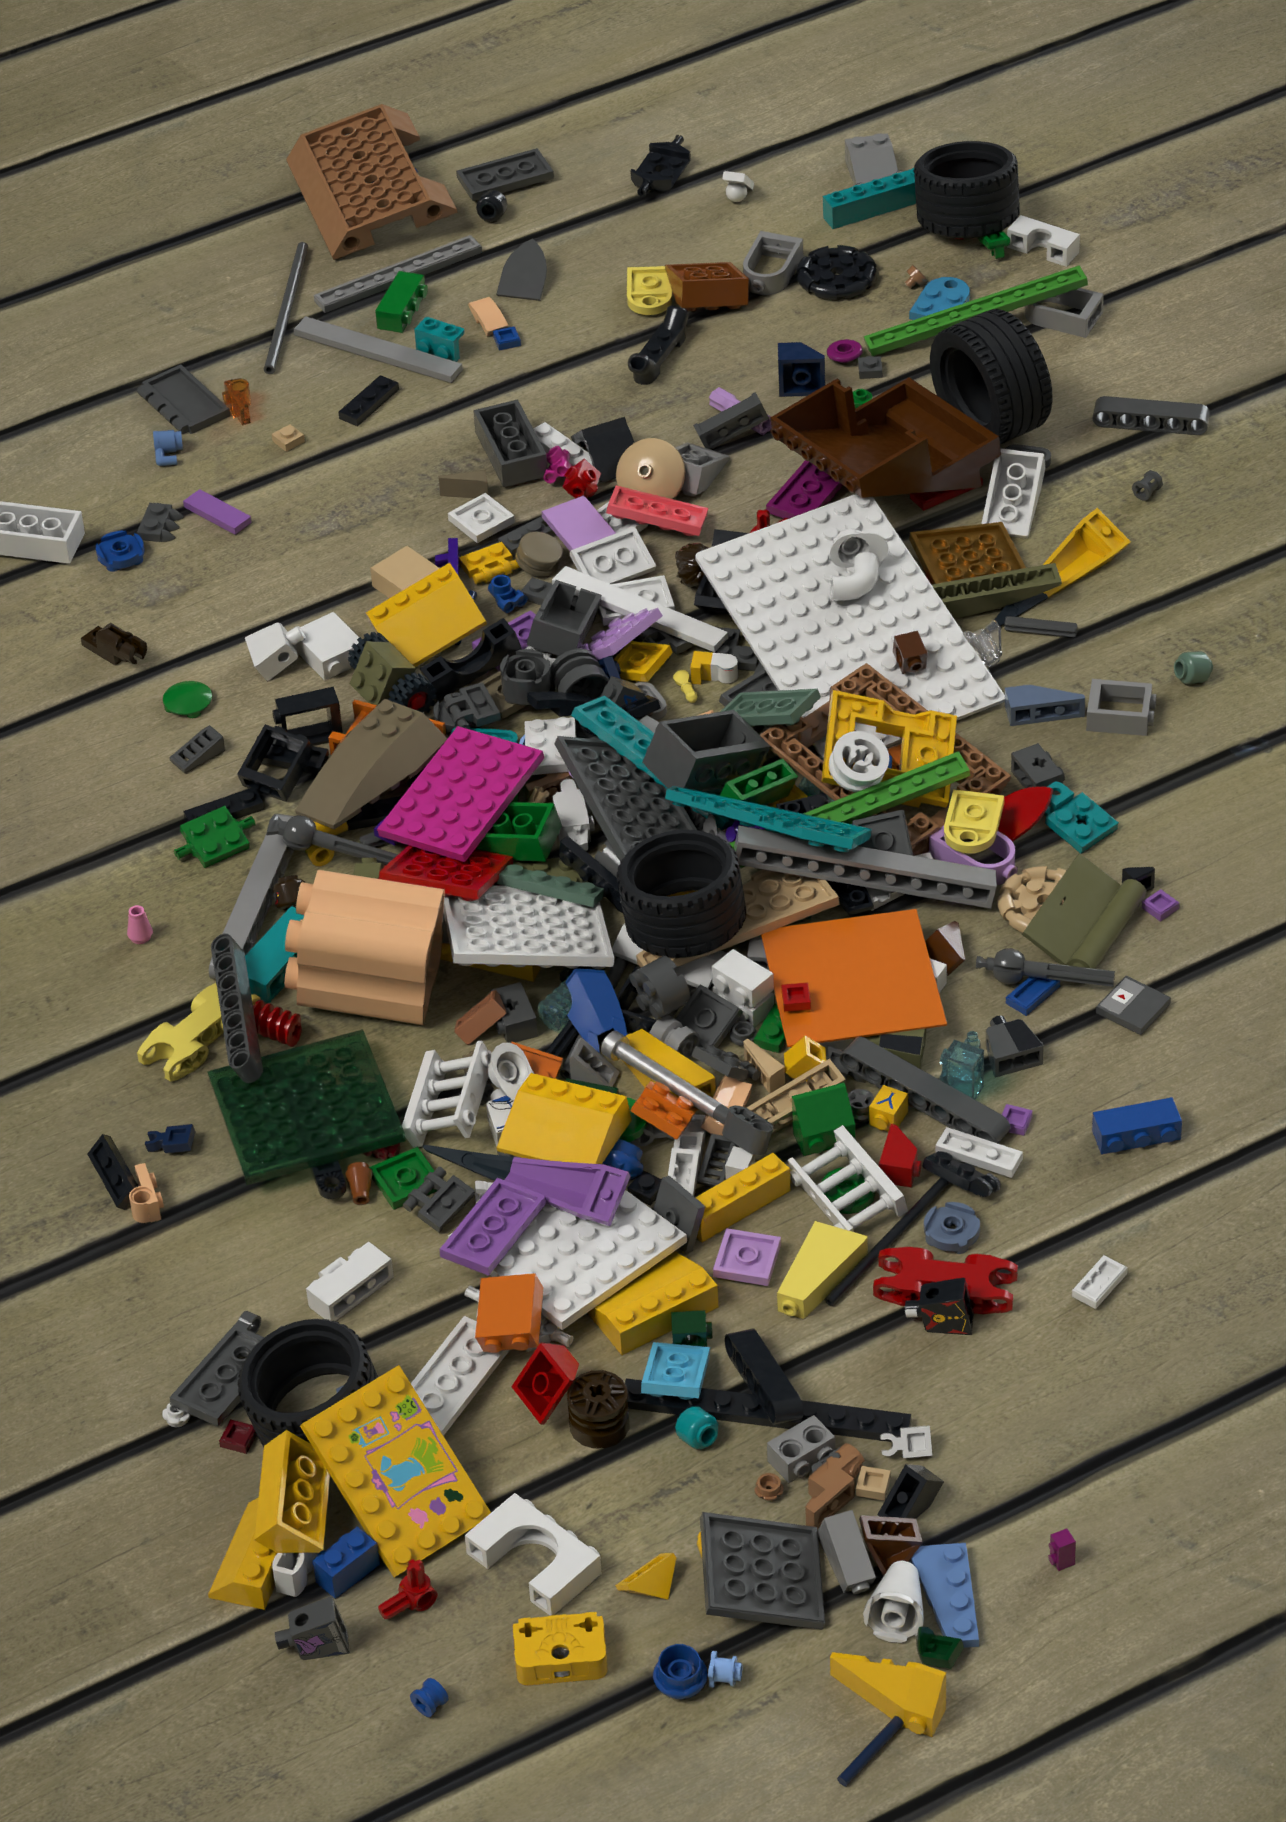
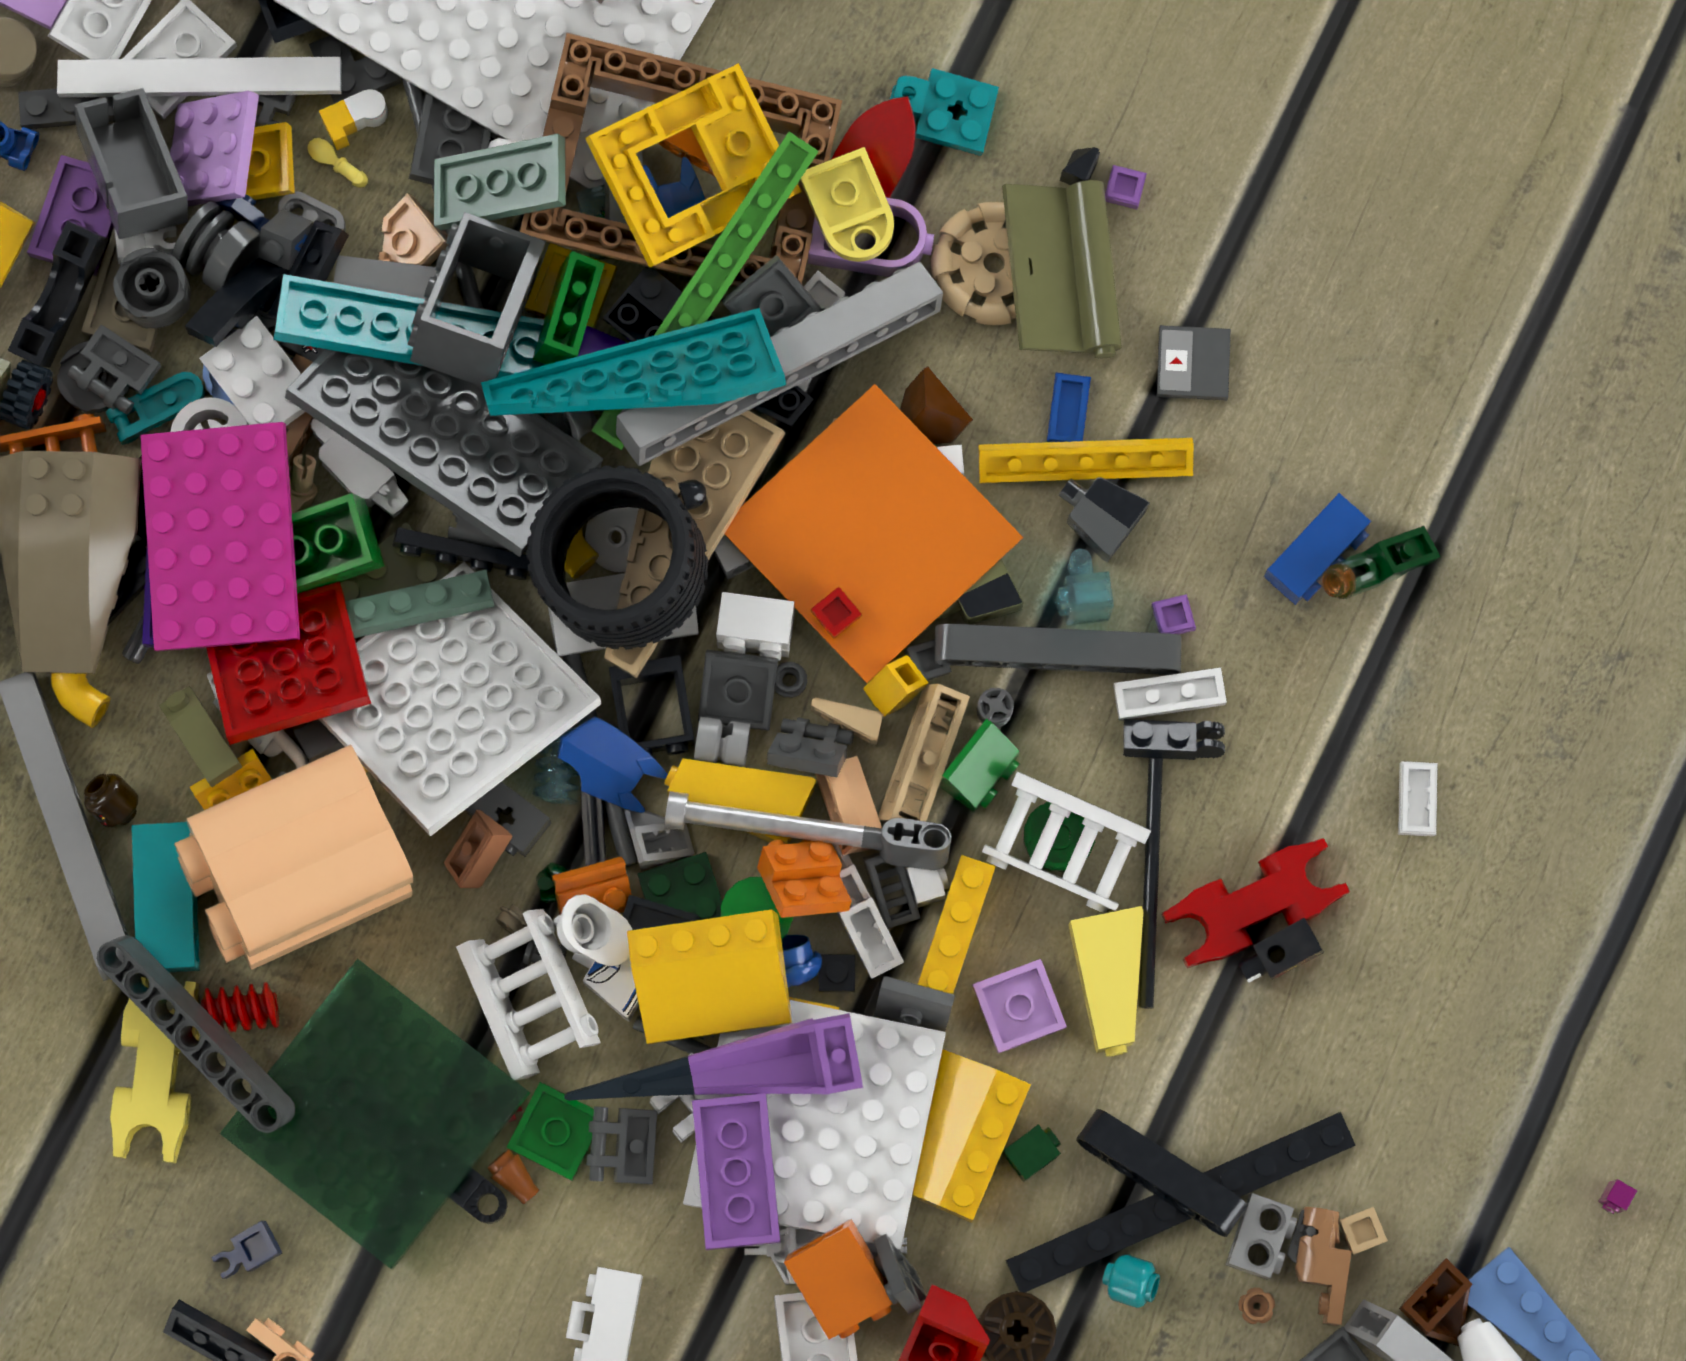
camera: 40 degrees left, 35 degrees up
(301, 834) = (67, 713): dark grey piece -> none
(546, 1326) = (903, 1280): none -> dark grey plate
(660, 987) = (679, 704): dark grey brick -> none
(675, 1370) = (1061, 1224): medium azure plate -> none
(755, 897) = (692, 493): none -> black hinge
(771, 1032) = (819, 657): green plate -> none
(853, 748) = (706, 221): white wheel -> none
(888, 1108) = (1031, 696): yellow brick -> none
(899, 1158) = (1091, 761): red slope -> none
(911, 1493) = (1415, 1225): black slope -> none
(913, 1442) = (1367, 1153): white plate -> none
(947, 1239) = (1193, 809): sand blue plate -> none
(1010, 967) = (1029, 396): dark grey piece -> none
(1035, 768) = (865, 77): dark grey brick -> none
(1040, 1021) = (1085, 460): none -> yellow plate
(1171, 1148) = (1380, 564): none -> dark green plate

